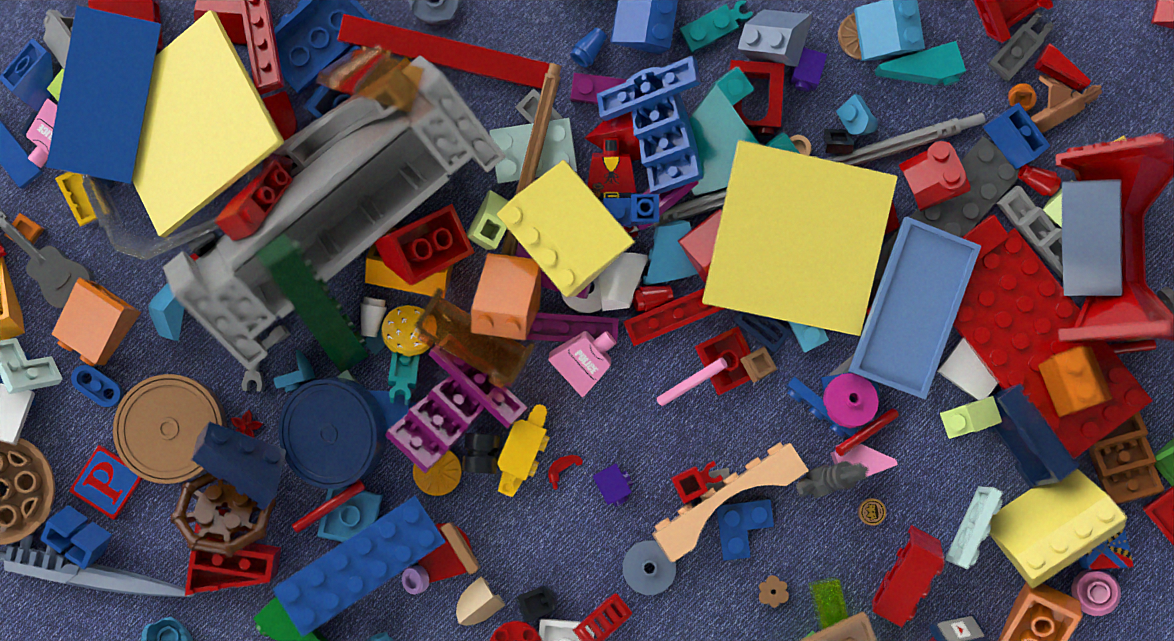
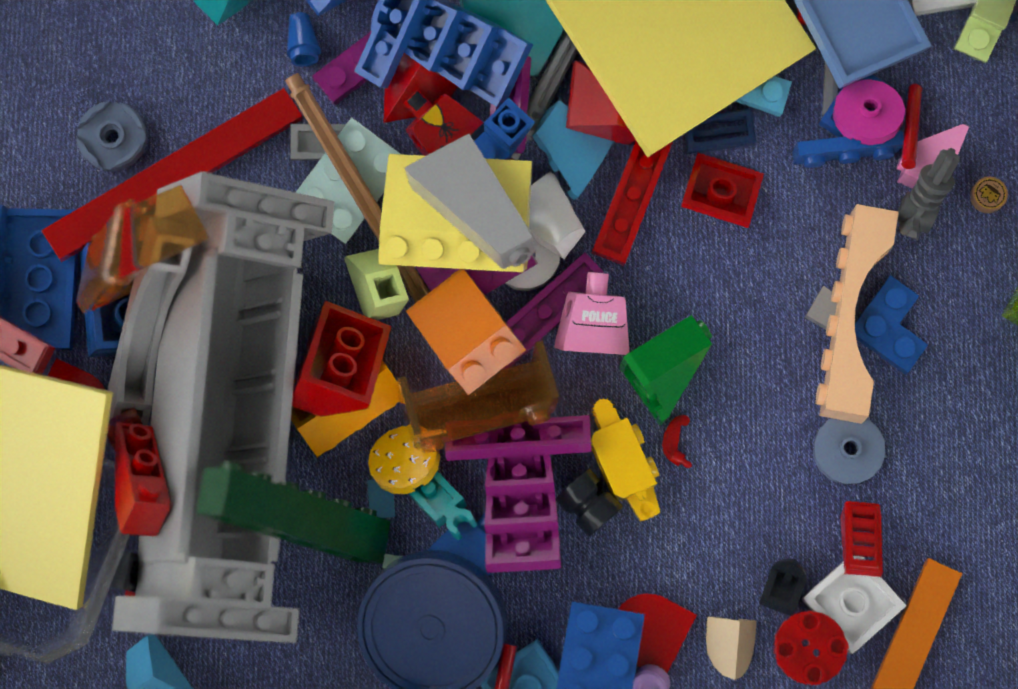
camera: 50 degrees left, 5 degrees down
(276, 336) = (297, 651): light grey piece -> none
(292, 381) = (342, 620): dark azure plate -> none
(372, 315) = (354, 482): white cone -> none
(441, 477) = (577, 567): light orange wheel -> none
(461, 547) = (663, 607): medium nougat tile -> none
(578, 224) = (472, 199): none -> light grey slope
(598, 423) = (666, 365): none -> green slope
(613, 485) = (739, 406): dark purple brick -> none
(651, 297) = (594, 204): red cone -> none
(692, 381) = (712, 240): bright pink bar -> none
(692, 483) = (808, 328): red brick -> none
(758, 364) = (752, 166): medium nougat tile -> none
(780, 594) = (989, 353): medium nougat plant -> none

